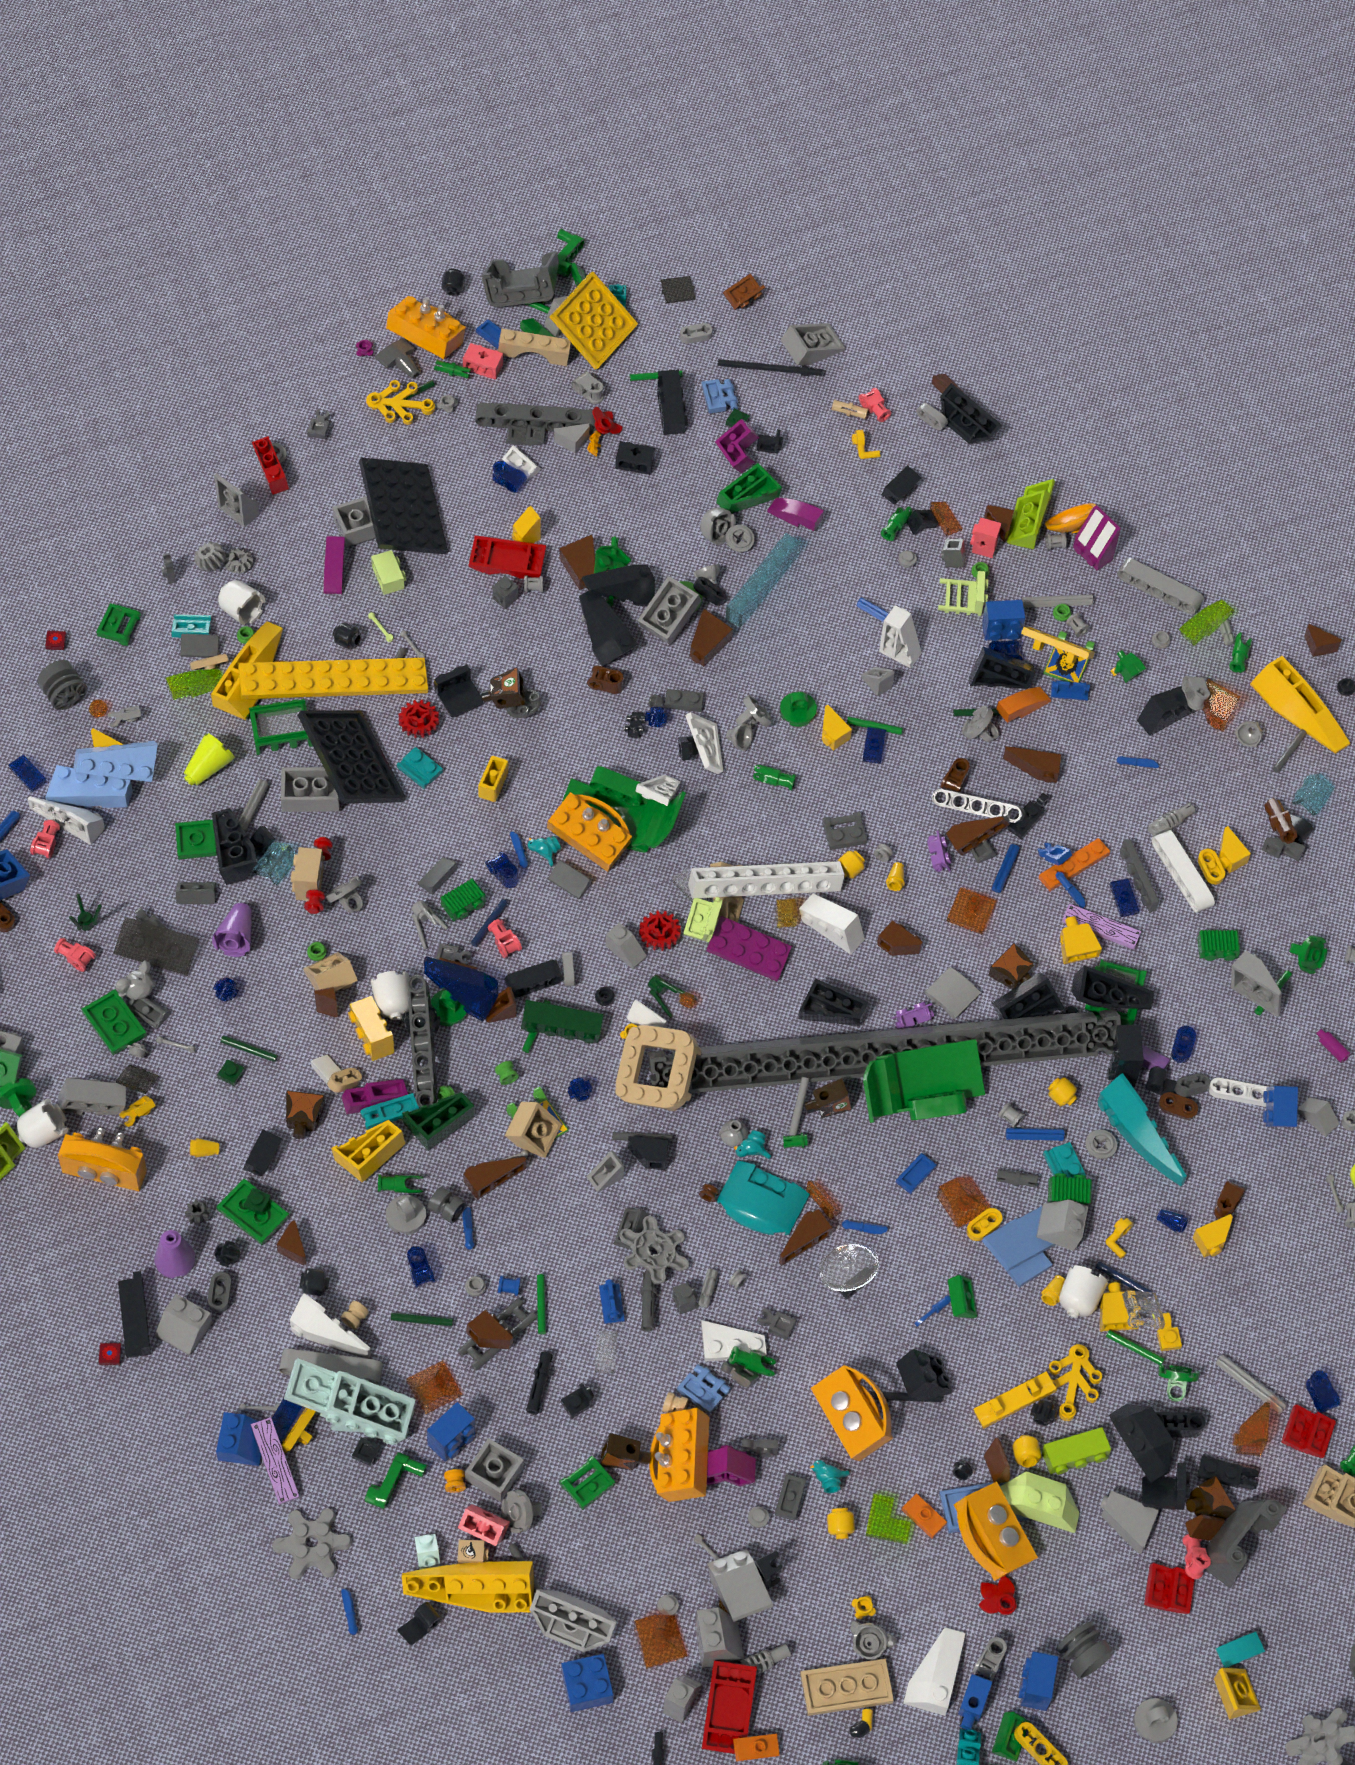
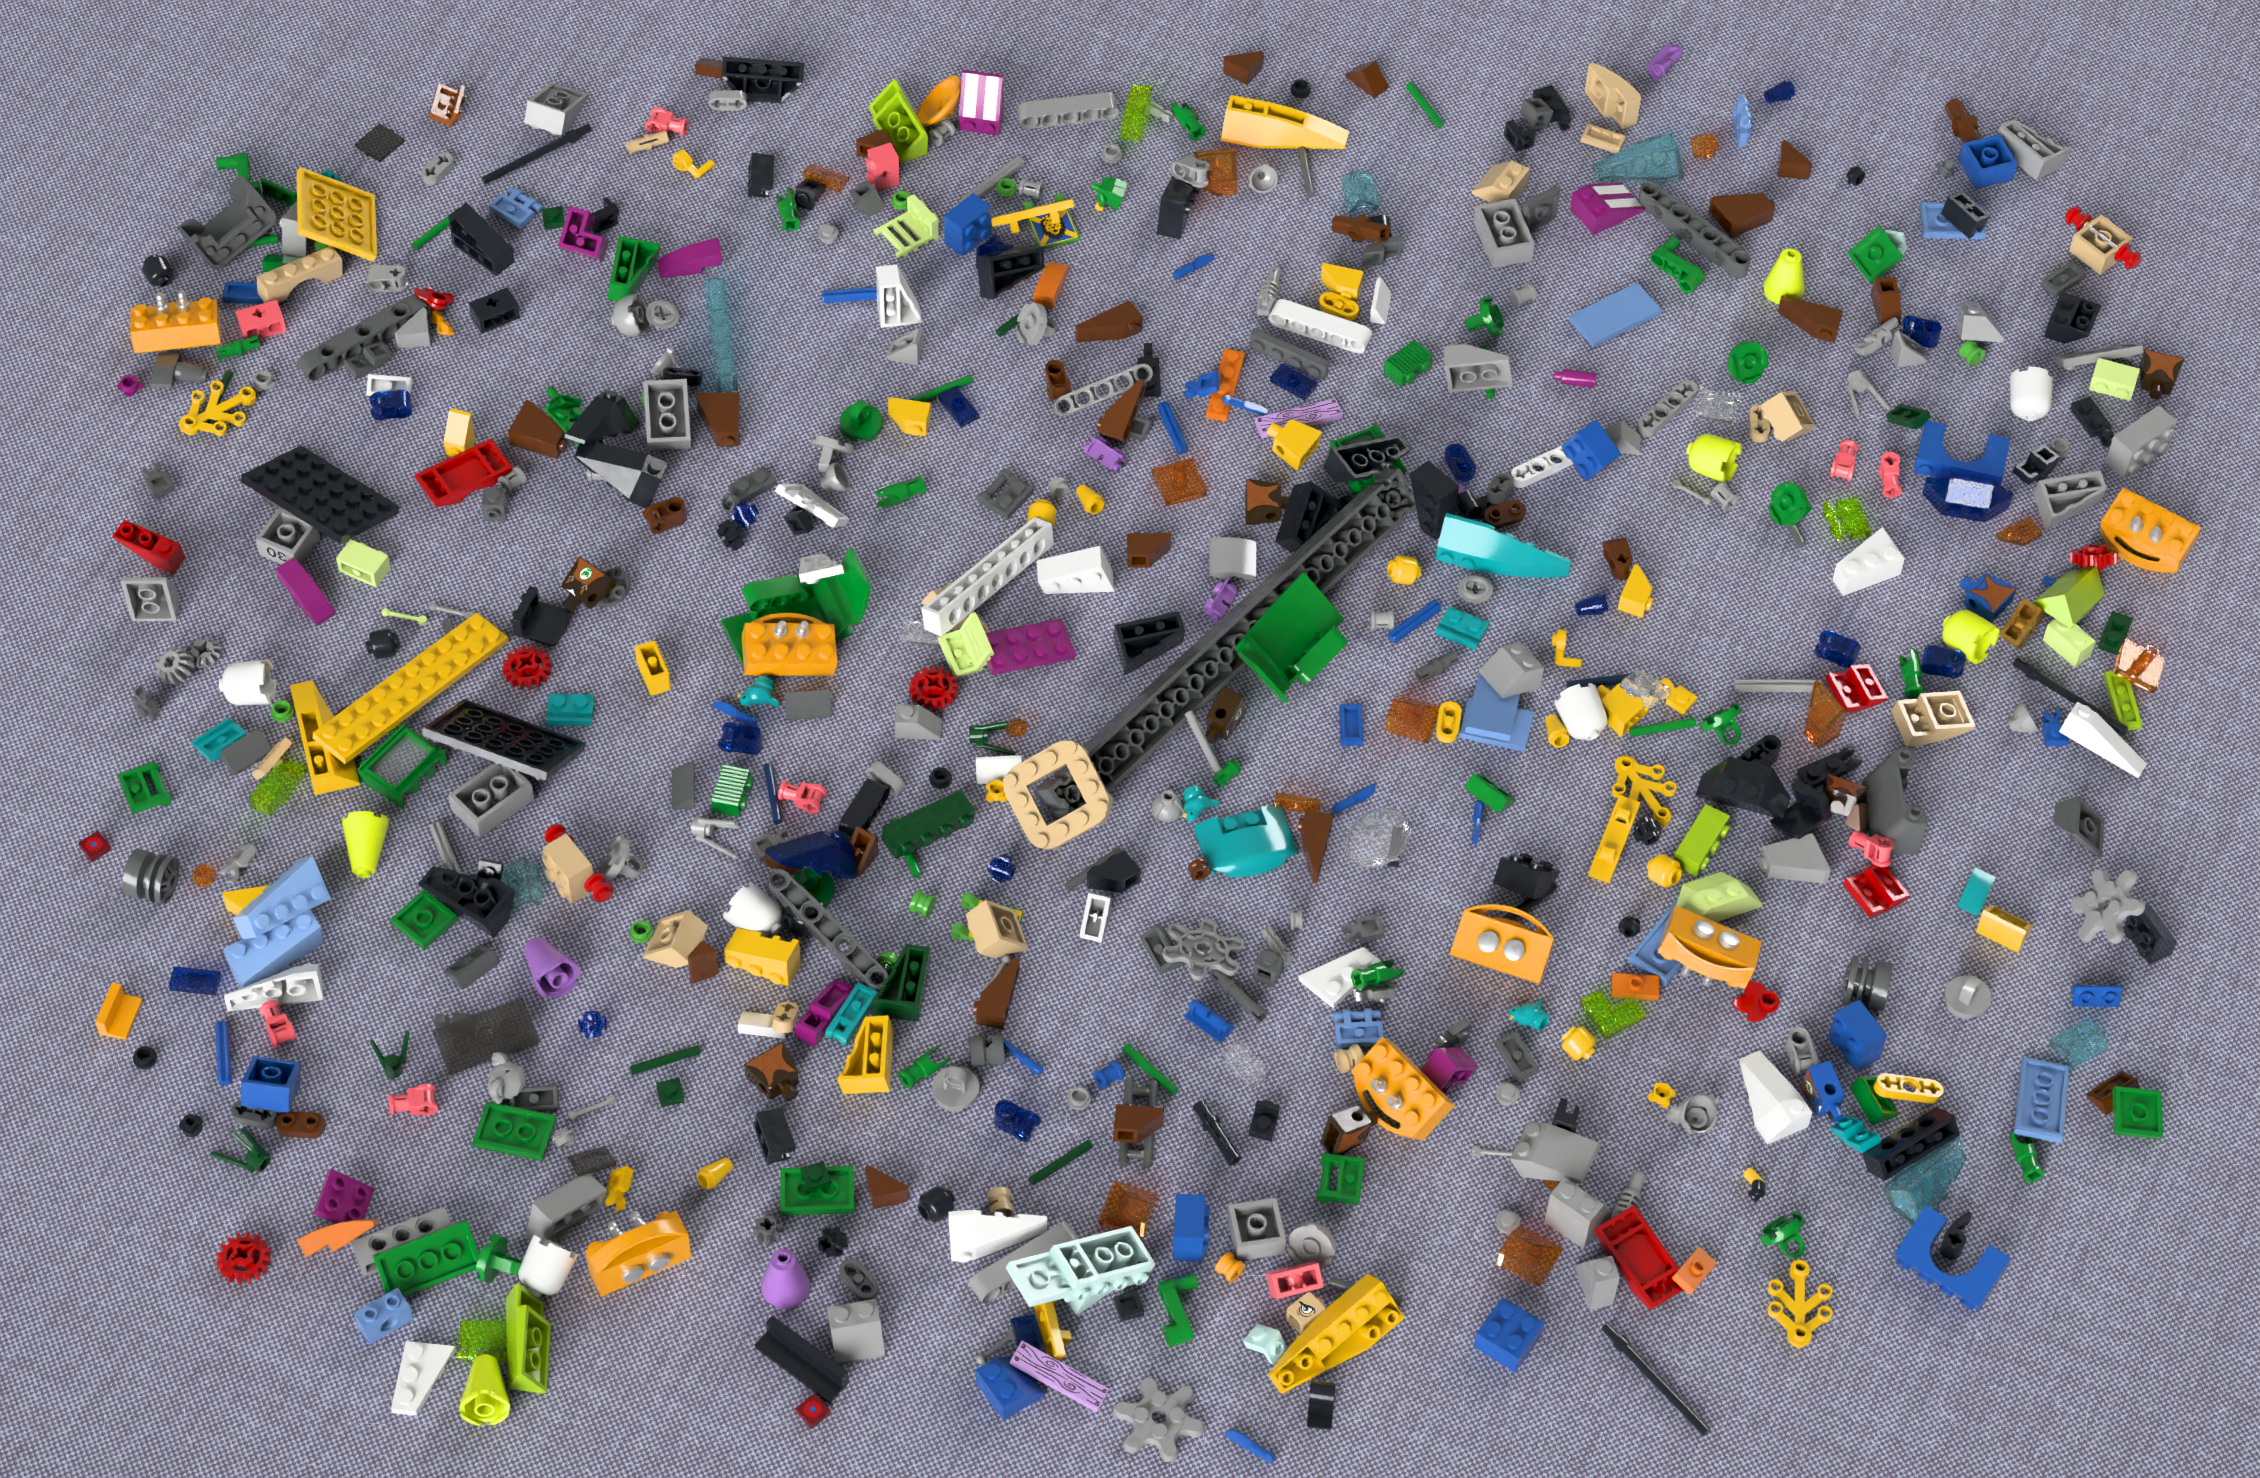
camera: 40 degrees left, 5 degrees down
(571, 1620) = (1448, 1295): light grey wedge -> none
(786, 913) = (1028, 594): clear yellow brick -> none
(846, 1687) = (1713, 1166): tan plate -> none
(997, 1462) = (1653, 895): reddish brown slope -> none
(1064, 1188) = (1487, 642): green brick -> none
(1069, 690) = (1078, 246): blue hinge -> none
(1245, 885) = (1380, 302): none -> white slope

